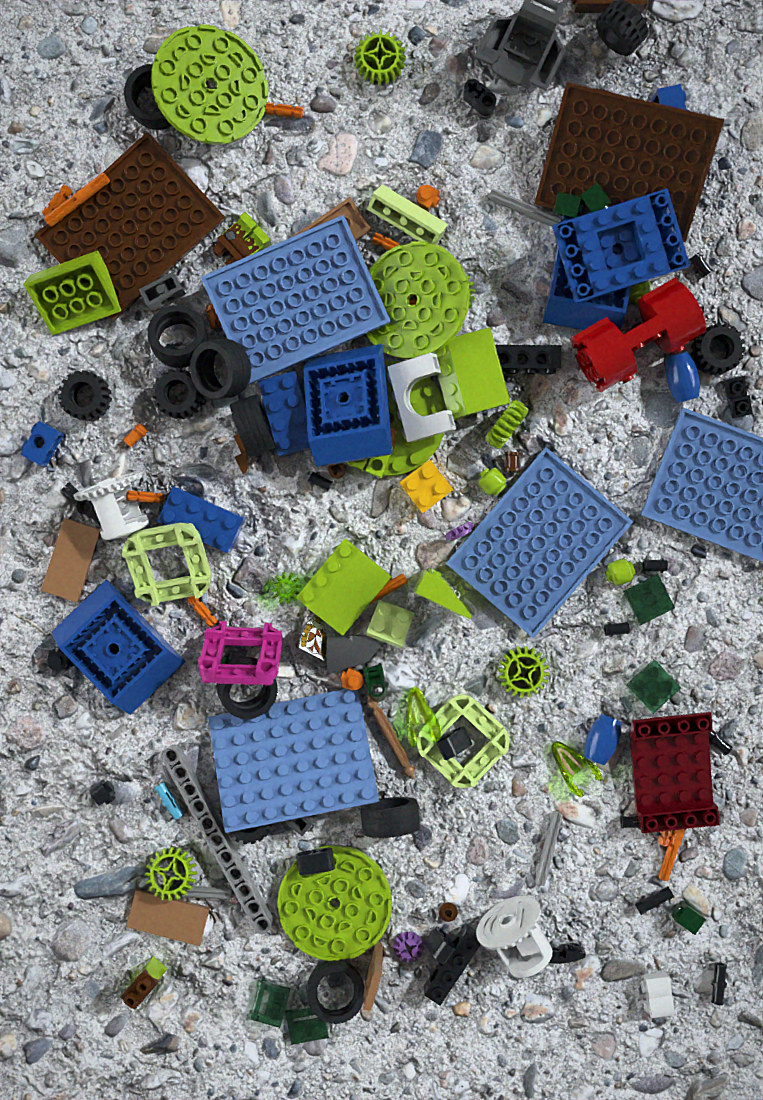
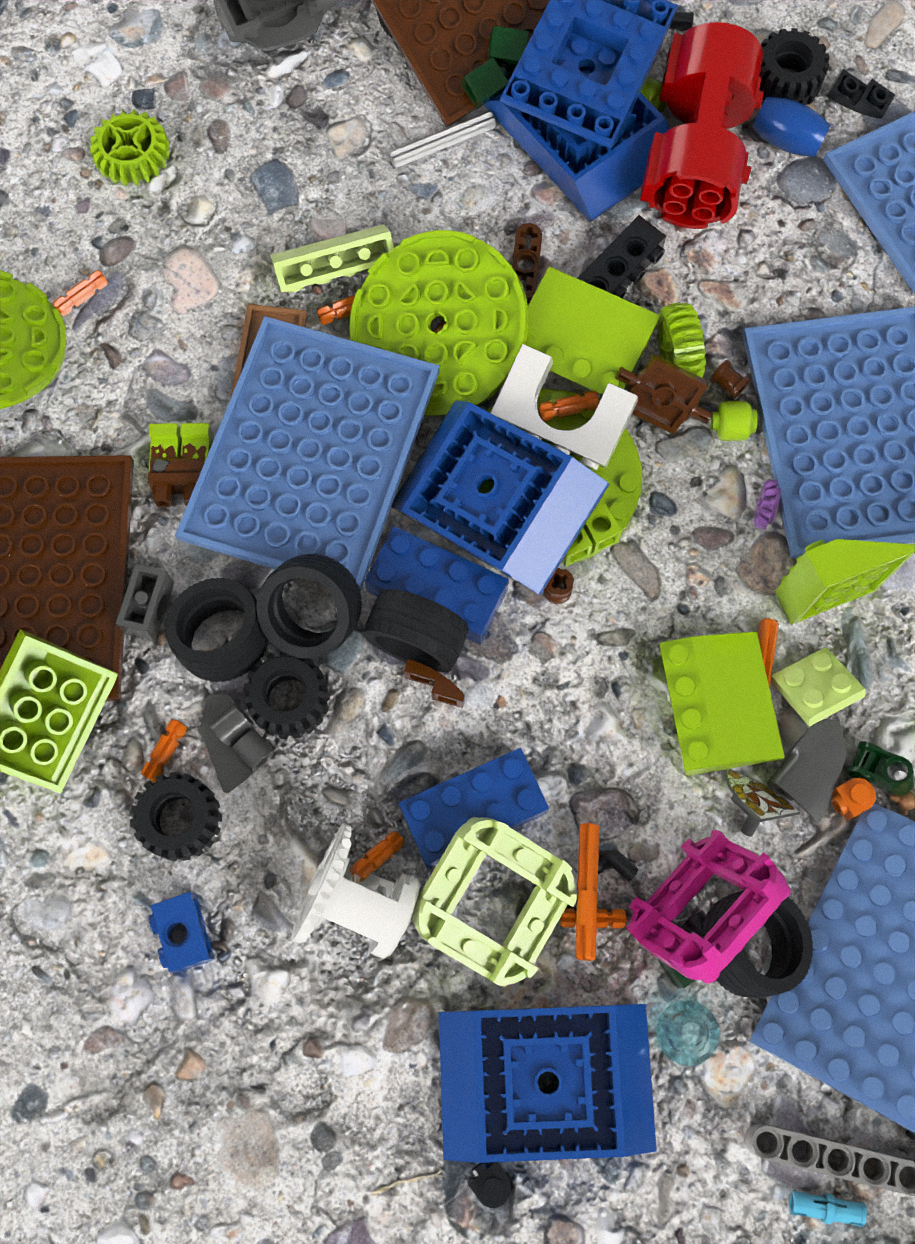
camera: 50 degrees left, 15 degrees down
(71, 560) = (369, 1039): medium nougat tile -> none
(91, 513) = (336, 946): black pin -> none
(109, 362) = (164, 749): none -> orange axle
(135, 435) = (286, 798): orange pin -> none
(138, 388) = (232, 741): none -> dark grey panel
(194, 680) = (669, 1033): none -> clear light blue piece
(208, 598) = (587, 892): none -> orange axle
(213, 317) = (229, 569): orange pin -> none
(234, 598) = (615, 860): none -> black arm
(285, 580) = (667, 787): clear neon green gear -> none
(320, 481) = (555, 619): black pin -> none
(426, 486) = (675, 498): yellow brick -> none
(427, 197) = (331, 222): orange plate -> none
(428, 398) = (568, 405): none -> orange axle
(472, 439) = (666, 394): none -> reddish brown plate
(482, 94) = (276, 85): black beam -> none
(505, 307) = (531, 254): none -> reddish brown beam

